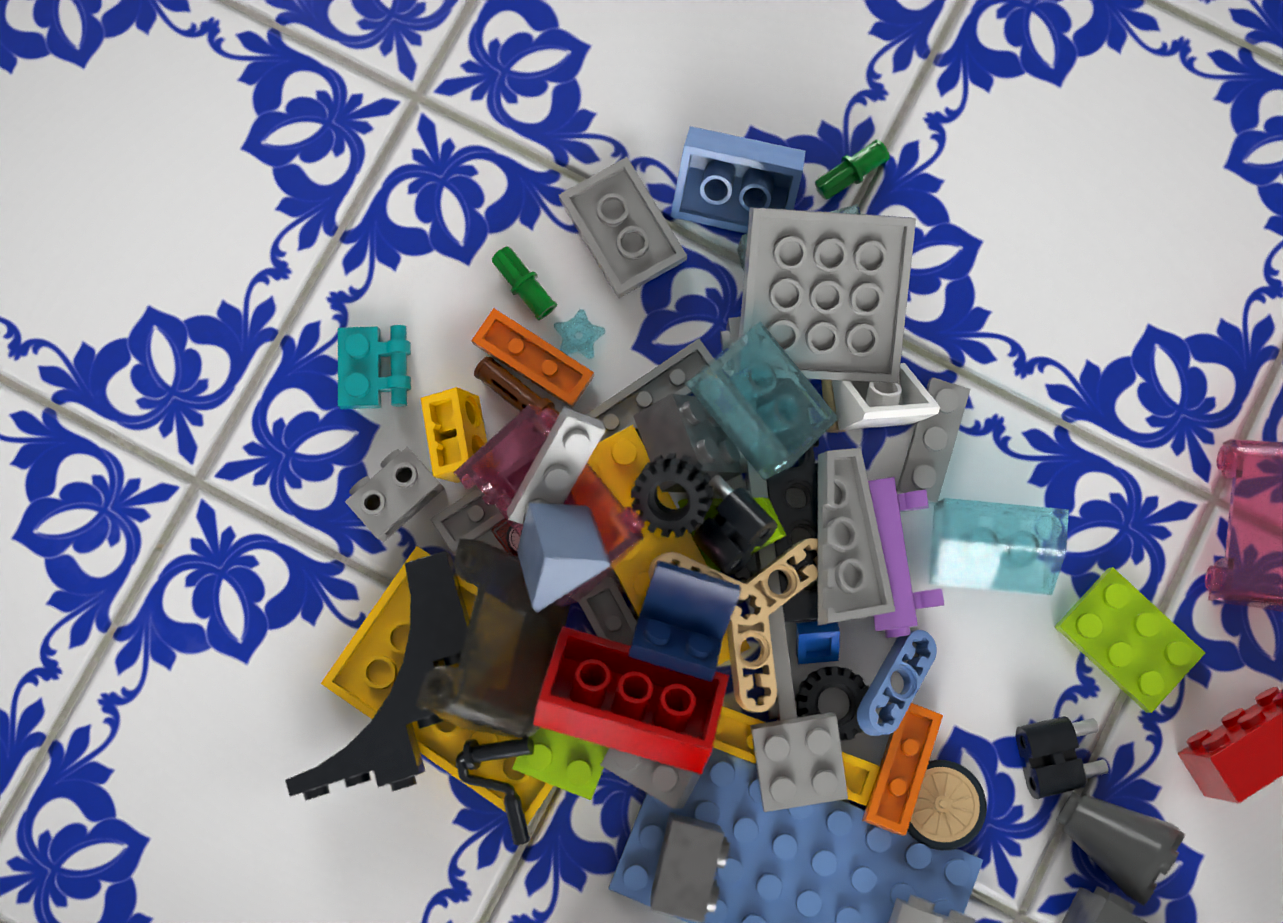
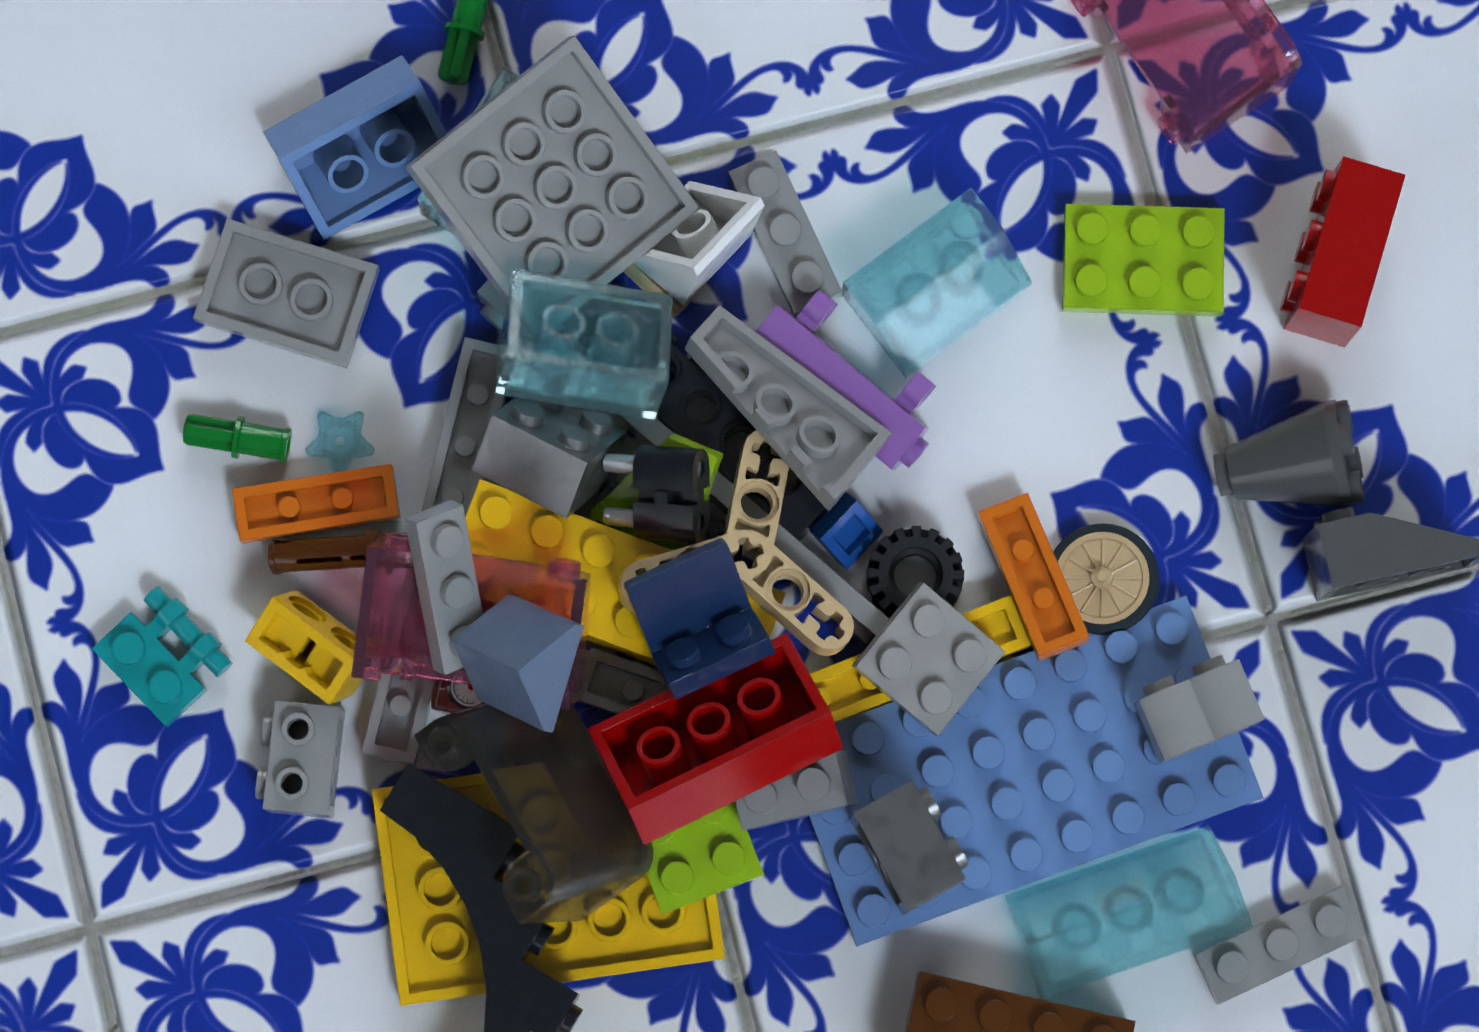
camera: 40 degrees left, 0 degrees up
(471, 759) = (613, 934): black piece -> none
(661, 516) = (574, 480): black tyre -> none
(881, 690) = (946, 520): medium blue beam -> none
(1052, 756) = (1167, 440): black piece -> none

